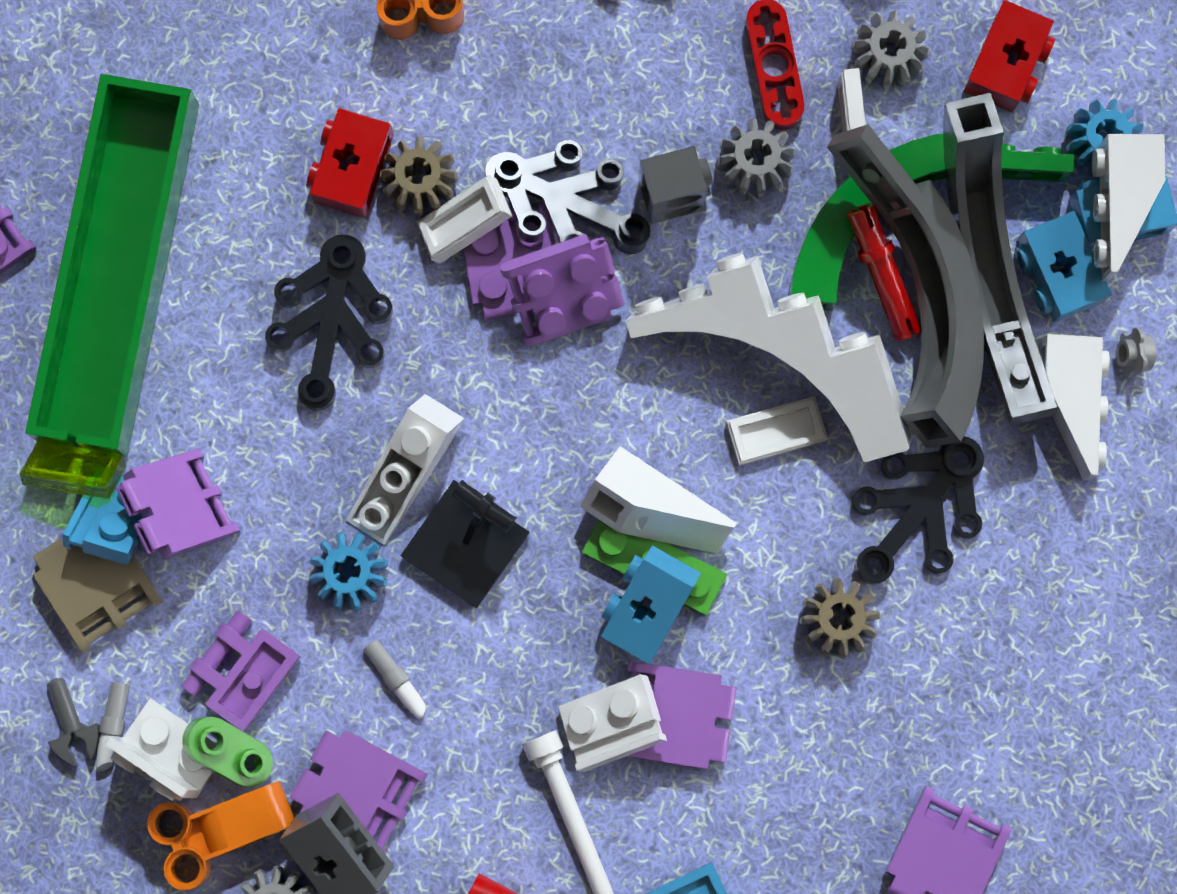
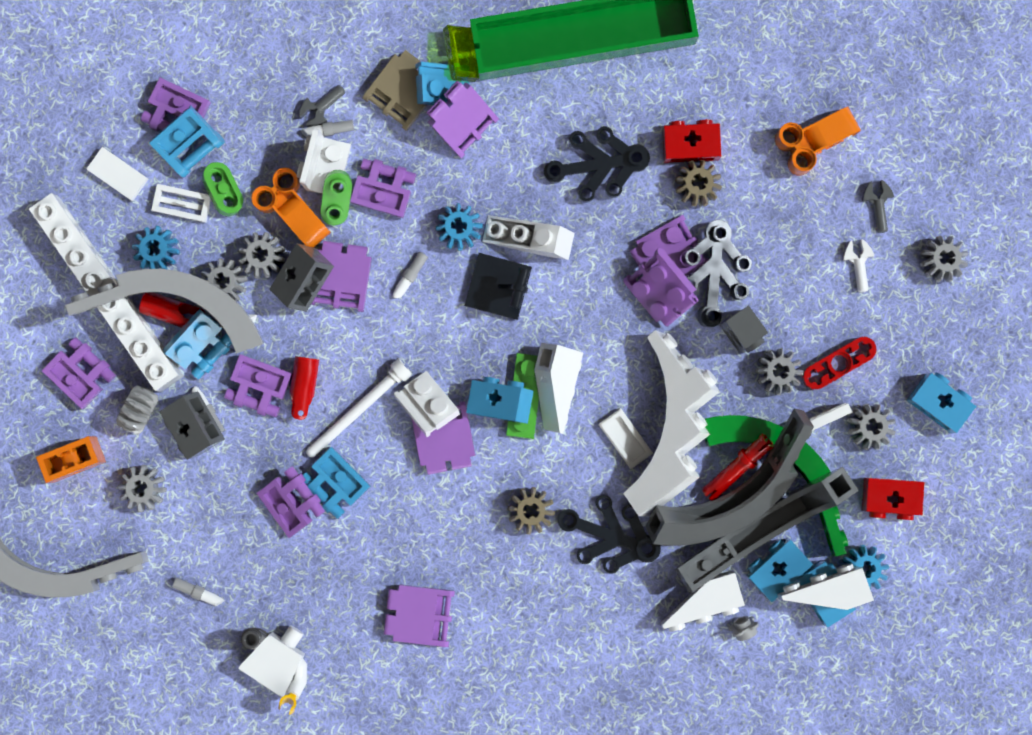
camera: 75 degrees right, 5 degrees up
(464, 219) = (682, 218): white tile -> none

